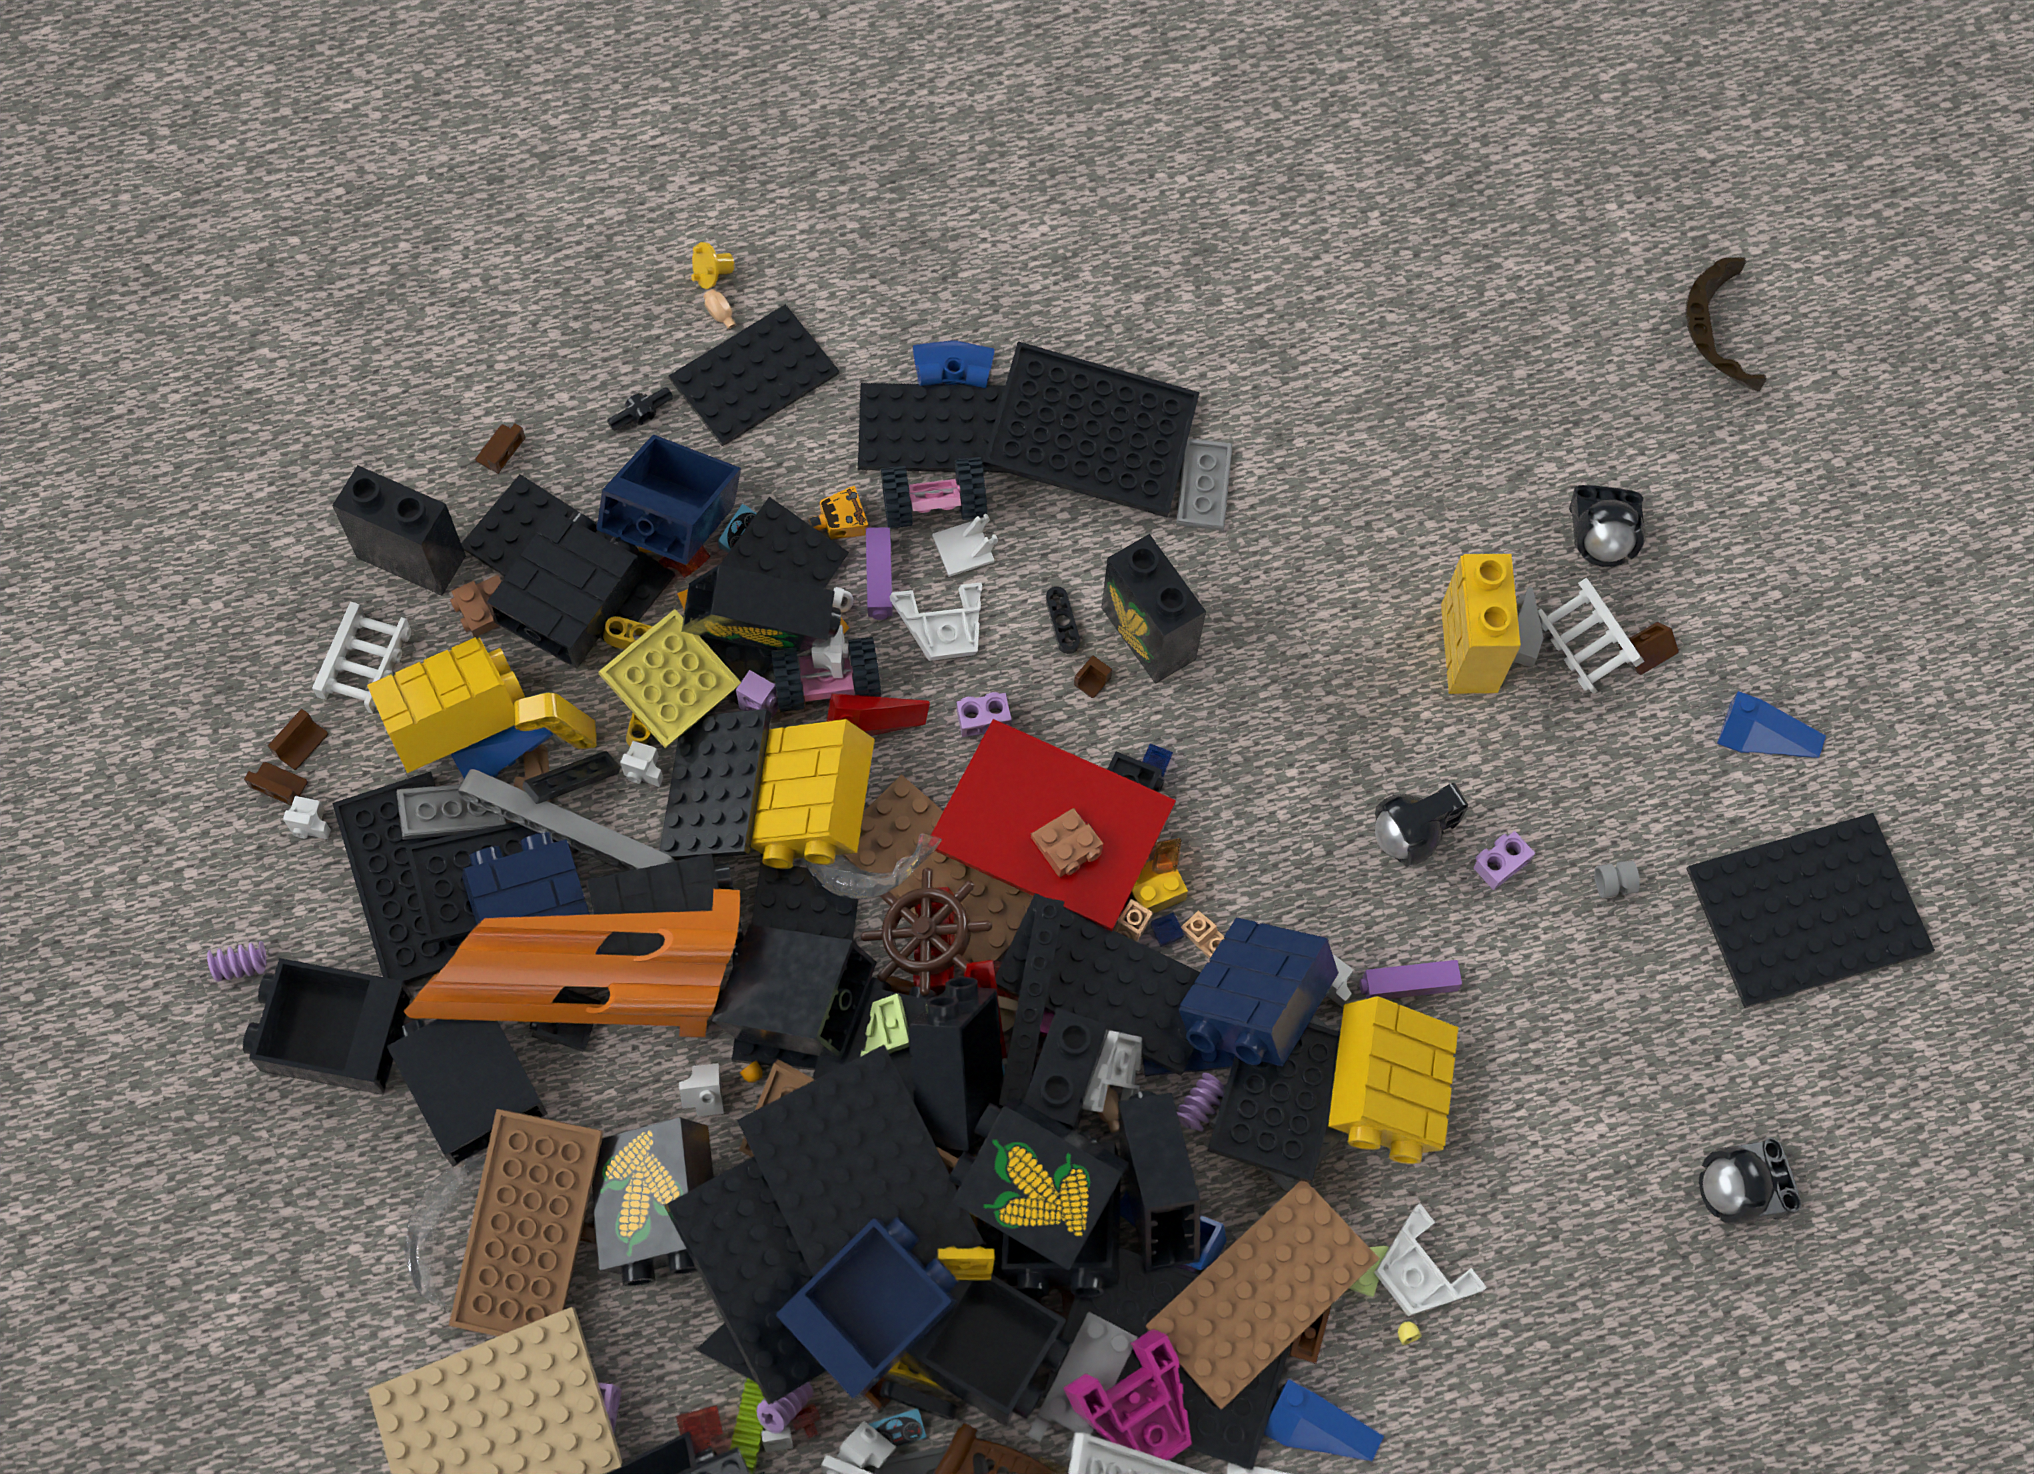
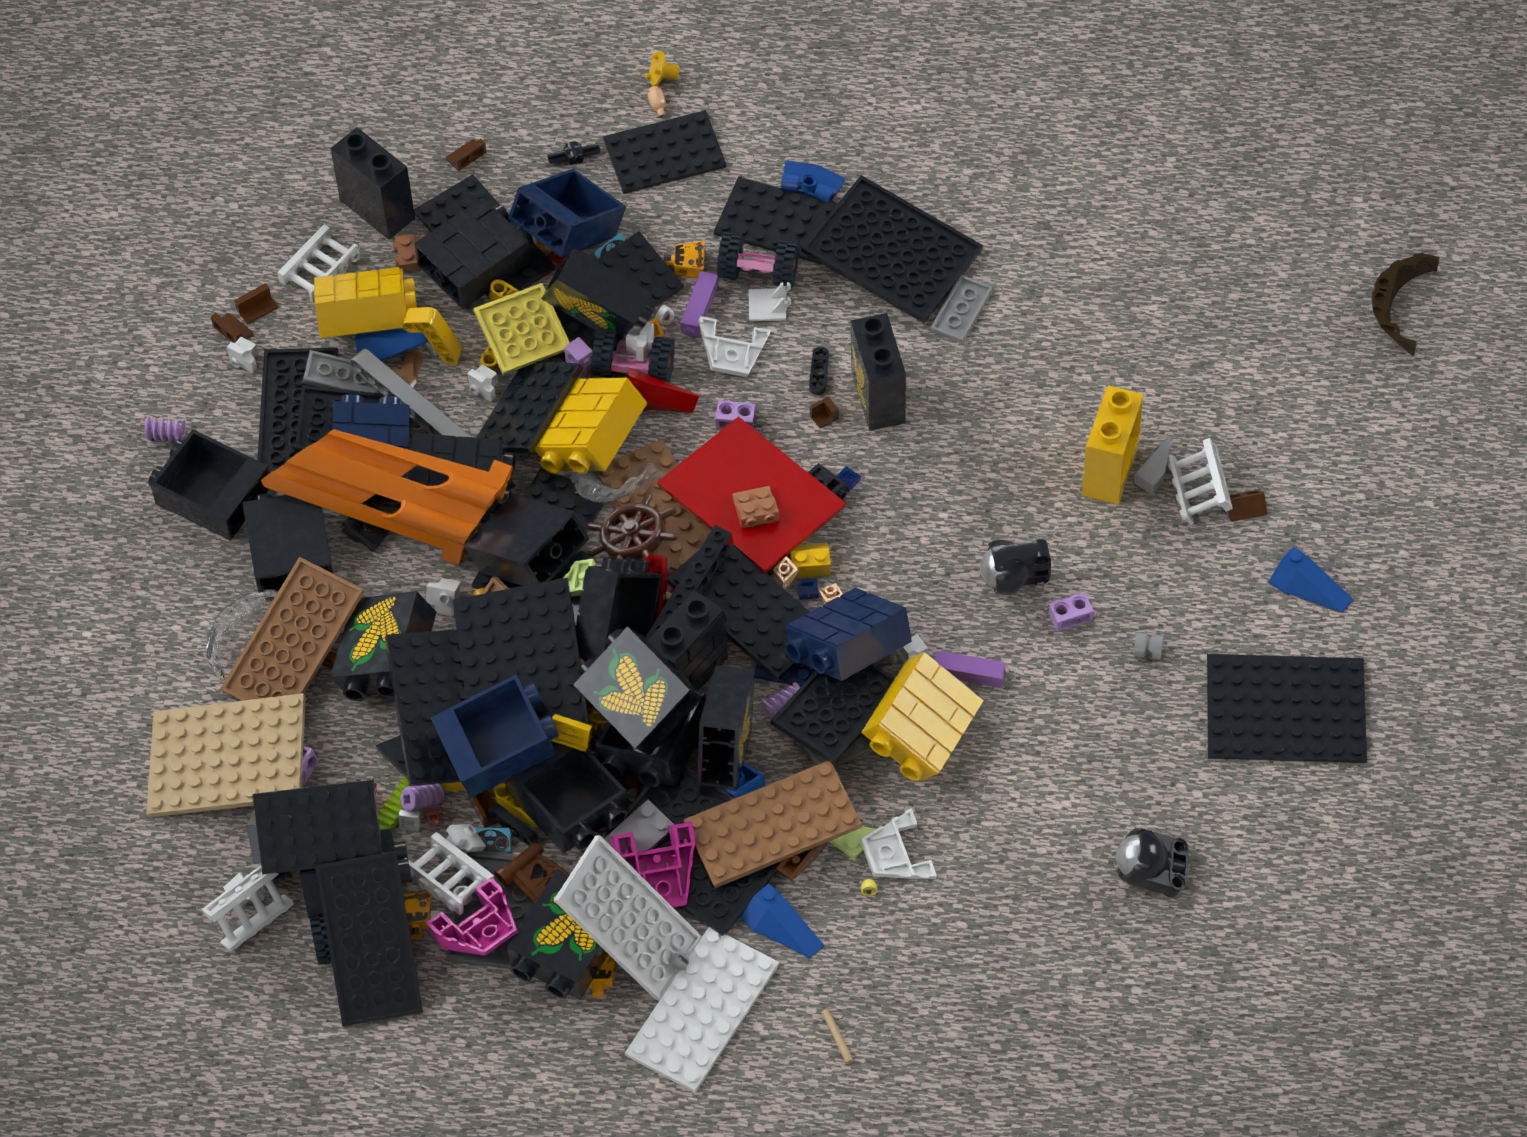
camera: 25 degrees right, 10 degrees down
(571, 777) = (431, 374): black plate -> none
(1115, 1067) = (729, 648): white wing -> none
(1166, 856) = (826, 540): clear orange tile -> none
(1607, 524) = (1247, 411): black piece -> none

